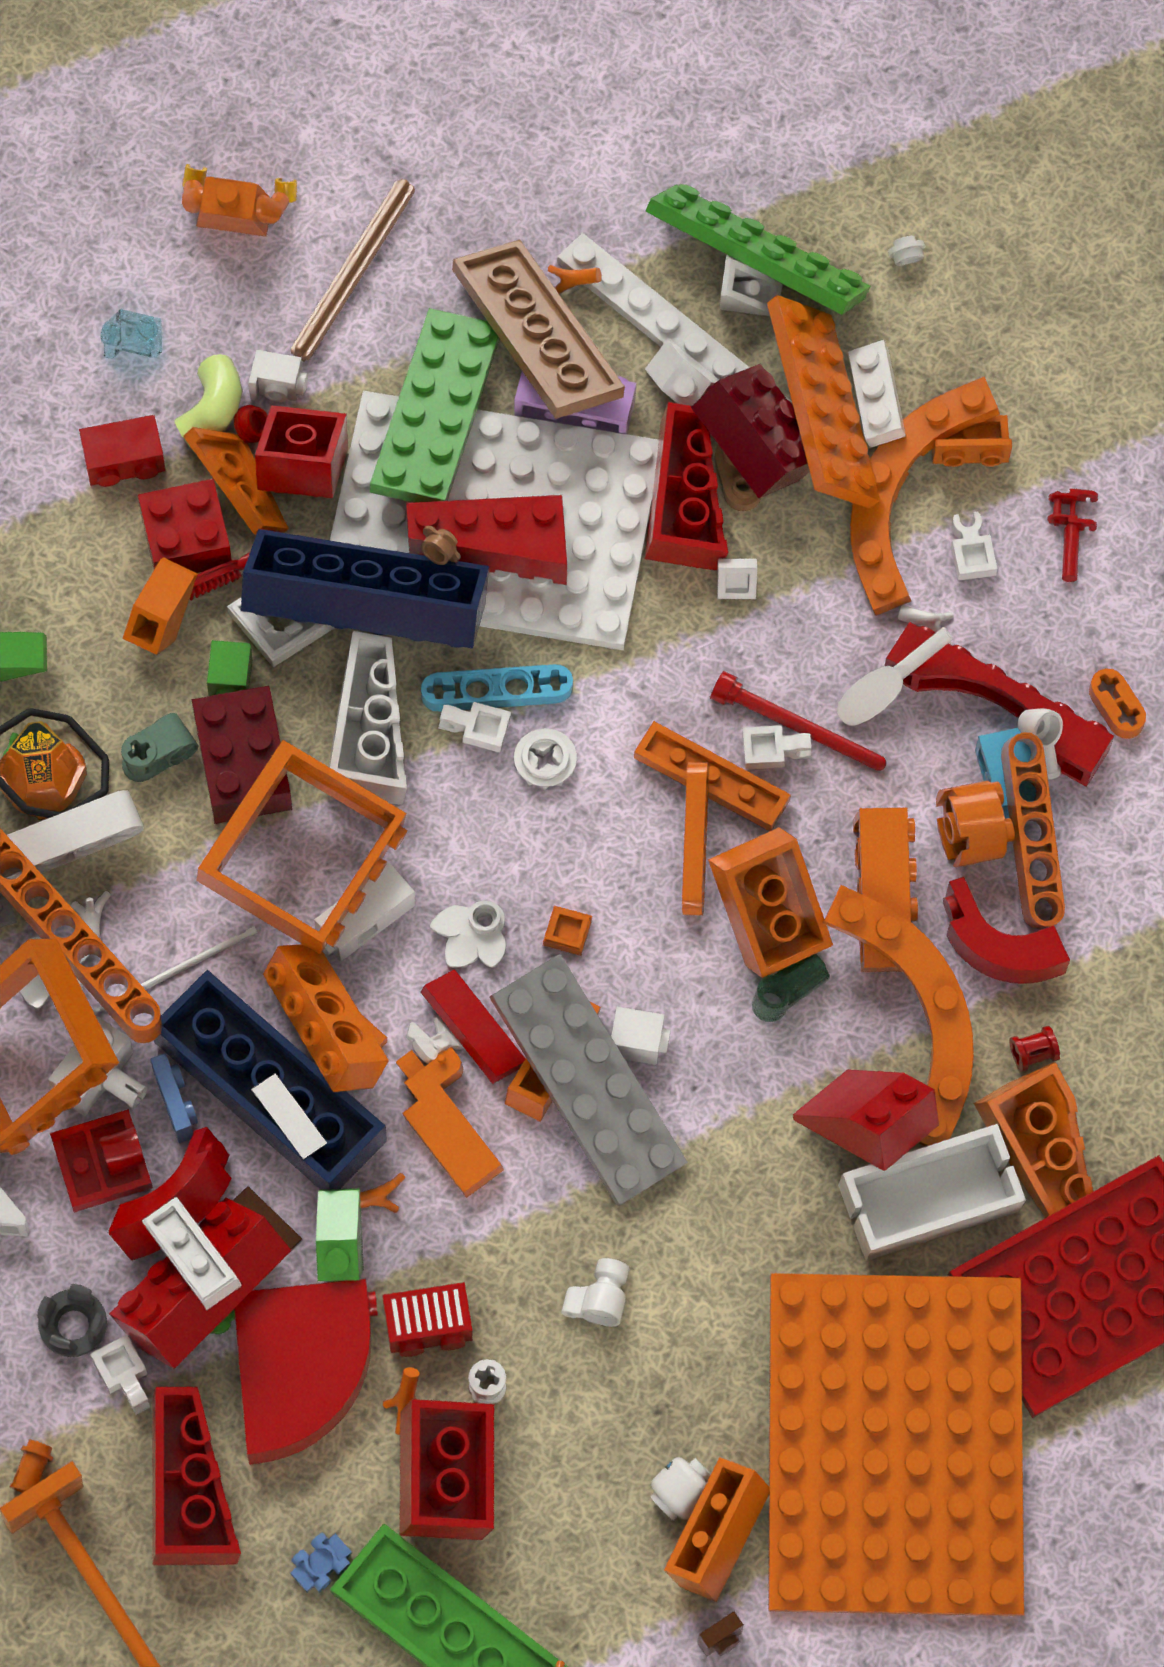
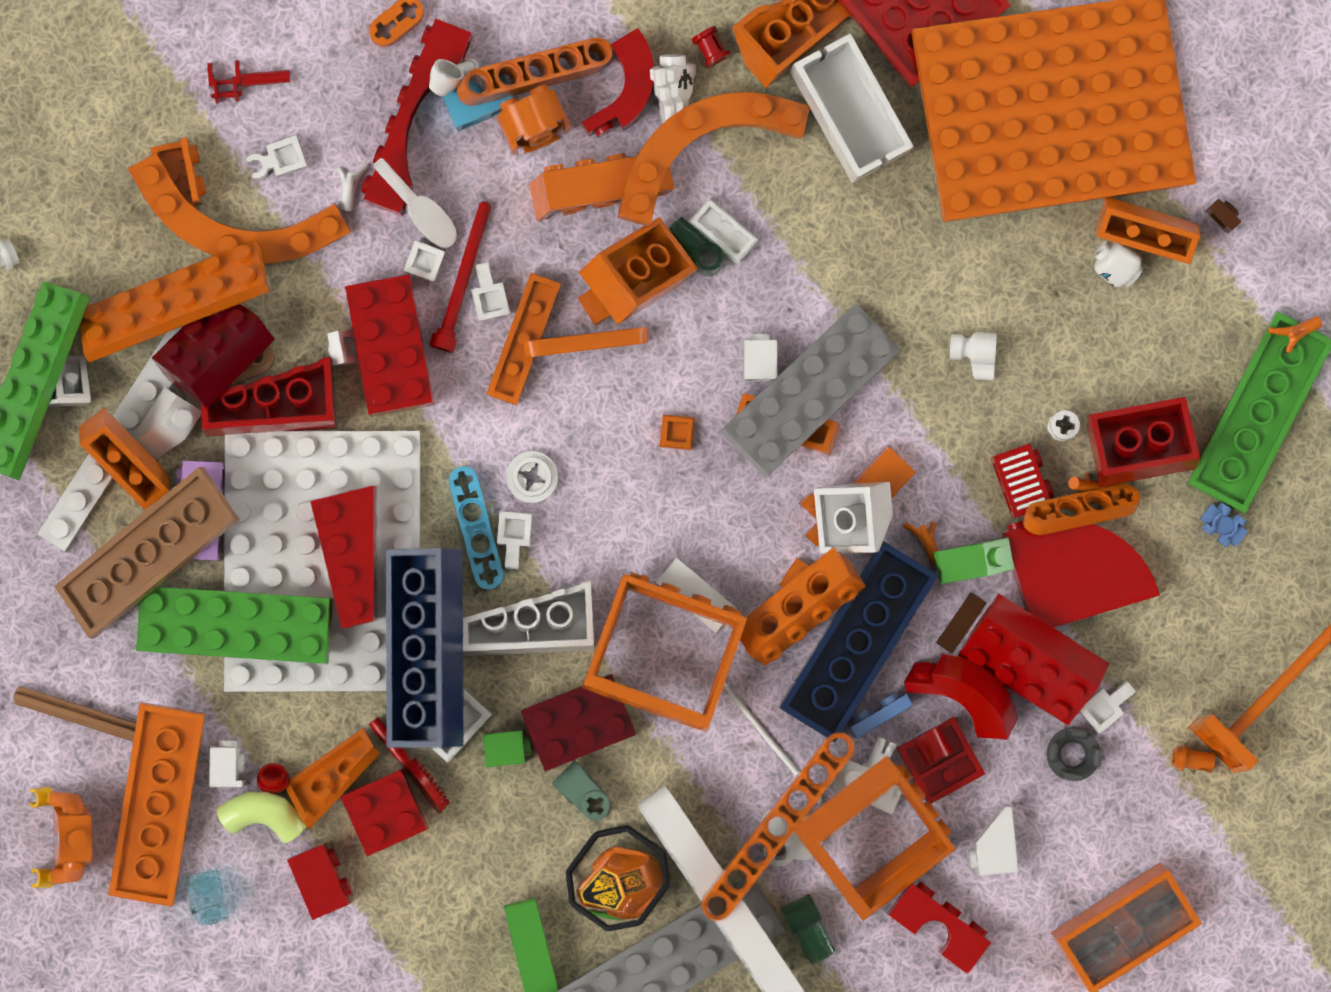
camera: 105 degrees left, 20 degrees up
(92, 913) = (739, 814): white bar -> none
(160, 607) = (465, 815): orange slope -> none
(187, 1492) = (1194, 636): red wedge -> none
(191, 1253) = (1027, 666): white tile -> none
(250, 297) = (157, 804): none -> orange plate
(289, 1116) = (890, 617): white sticker -> none
(301, 451) = (299, 728): red brick -> none
(369, 1378) = (1116, 500): none -> orange beam
(423, 1099) = (853, 516): none -> white slope
(430, 1047) = (800, 522): white piece -> none
(439, 546) = (380, 591): medium nougat plate -> none
(469, 939) = (700, 509): white plate -> none
(473, 1026) = (773, 493): red tile -> none
(573, 278) = (84, 532): orange bar -> none
(650, 319) = (124, 458): none -> orange brick
(730, 626) = (389, 345): none -> red brick
(804, 1023) = (723, 230): none -> white plate
(824, 683) = (424, 261): none -> white plate
(872, 1114) = (799, 166): red slope -> none
(876, 393) = (150, 258): white plate -> none
(998, 993) = (673, 83): none -> white rock

